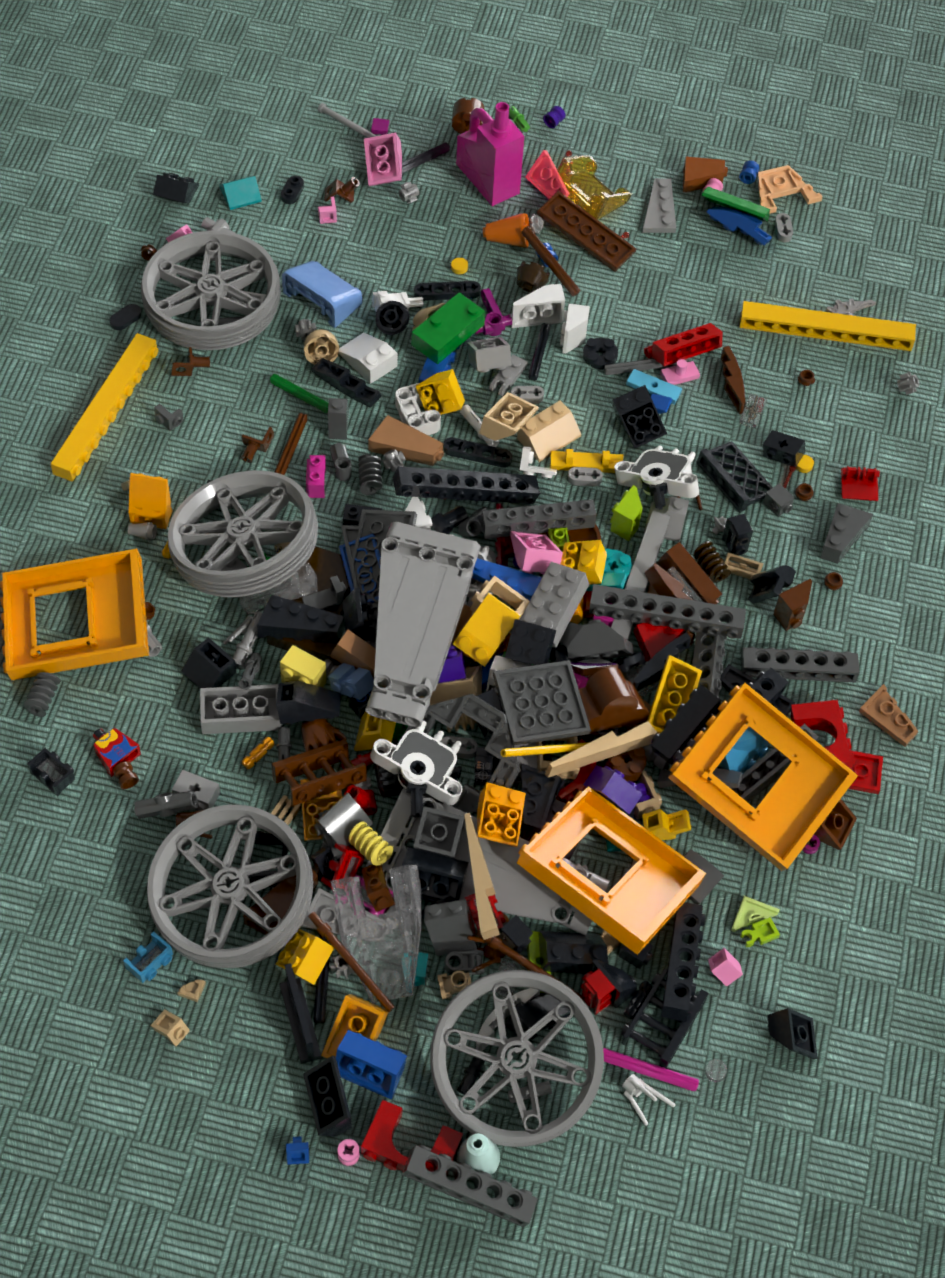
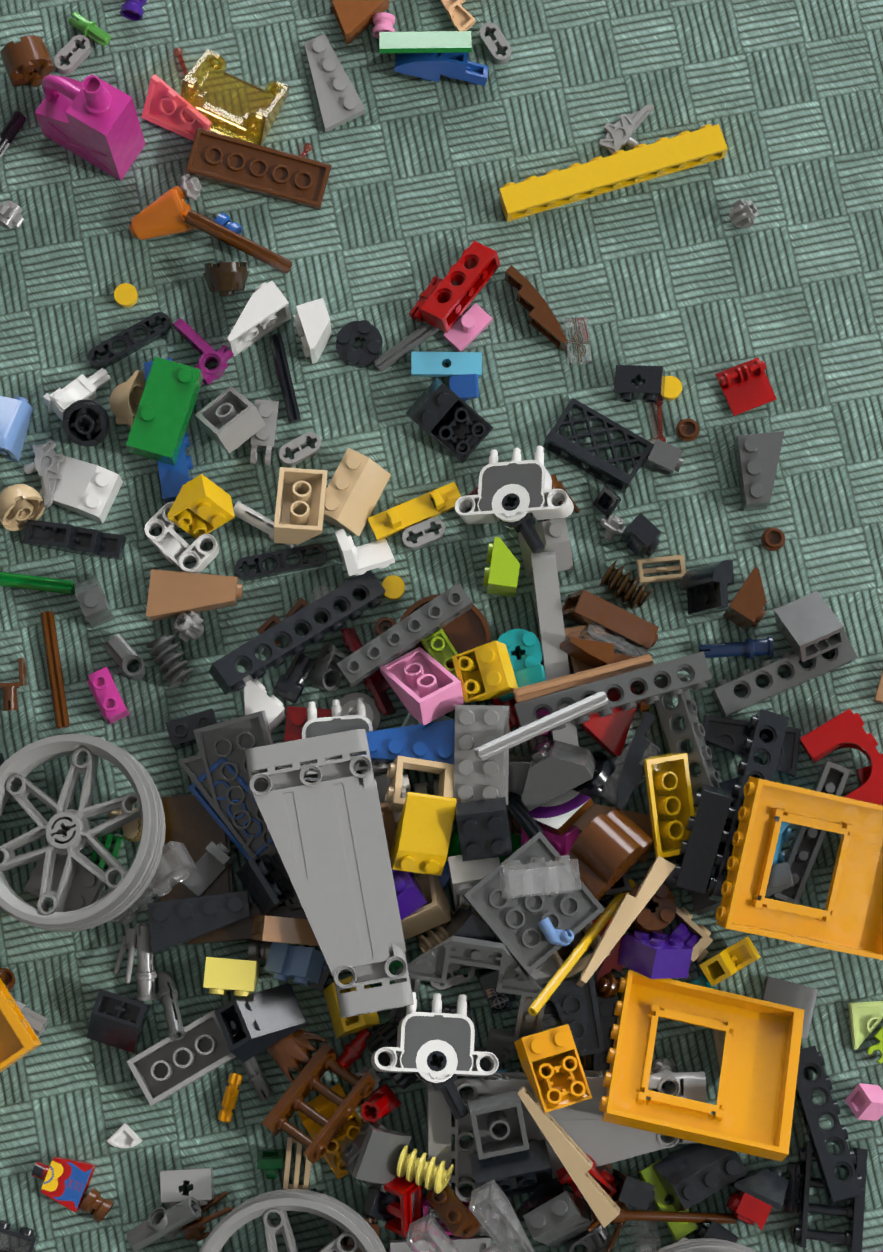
camera: 25 degrees left, 20 degrees up
(170, 745) = (124, 1137): none -> white tile
(263, 802) = (270, 1161): none -> dark green tile
(351, 335) = (47, 465): none -> light grey piece
(544, 725) = (555, 936): none -> medium blue arm
(546, 497) = (394, 587): none -> yellow tile
(553, 683) = (539, 877): none -> clear brick
(567, 793) = (608, 986): none -> reddish brown plate
(605, 597) = (541, 726): none -> light grey axle
(610, 582) = (580, 678): none -> medium nougat axle
(725, 508) = (606, 501): none -> black slope
(781, 638) = (748, 647): none -> dark blue pin
(806, 377) = (620, 256): reddish brown plate -> none
(833, 638) = (810, 626): none -> brick

